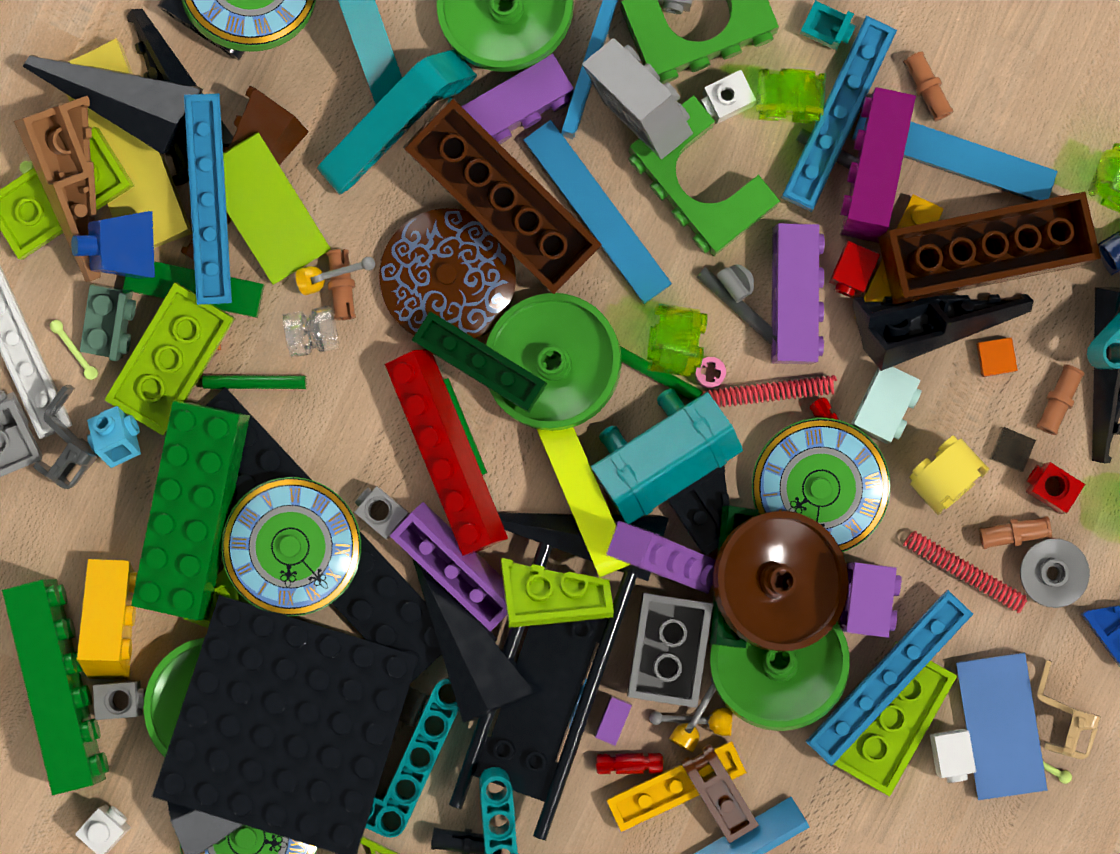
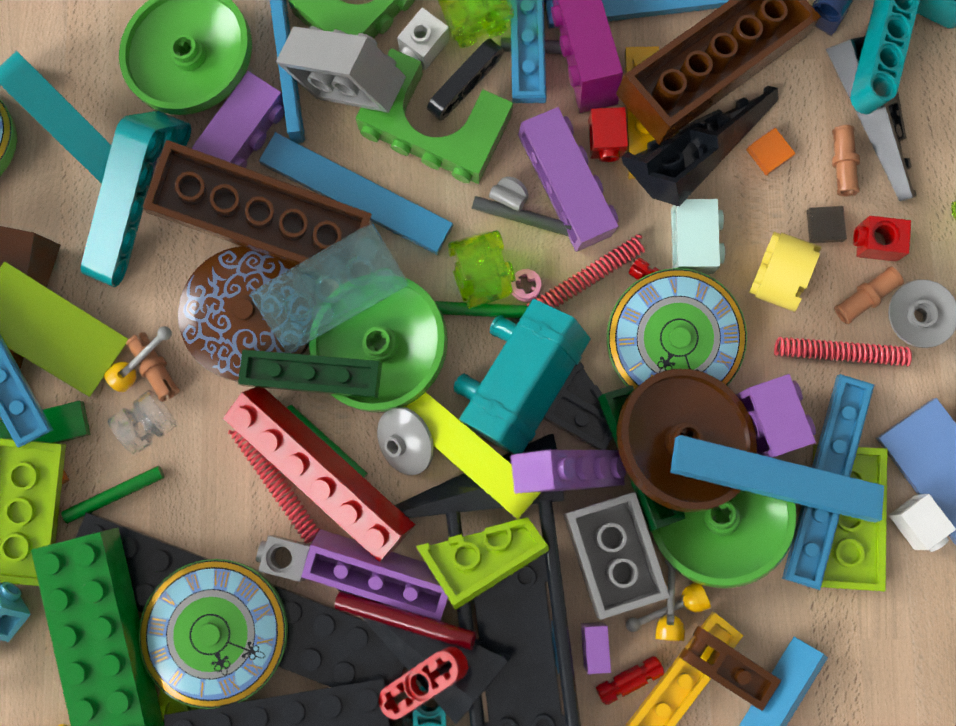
camera: 25 degrees left, 5 degrees down
(406, 481) = (298, 523): none -> coral piece
(461, 616) = (406, 620): none -> dark red piece
(464, 679) = (437, 682): none -> beam
(532, 294) = (329, 288): none -> clear light blue plate
(534, 461) = (405, 441): none -> light grey dish
(749, 153) = (465, 79): none -> black beam
(841, 653) = (777, 479): none -> dark azure tile

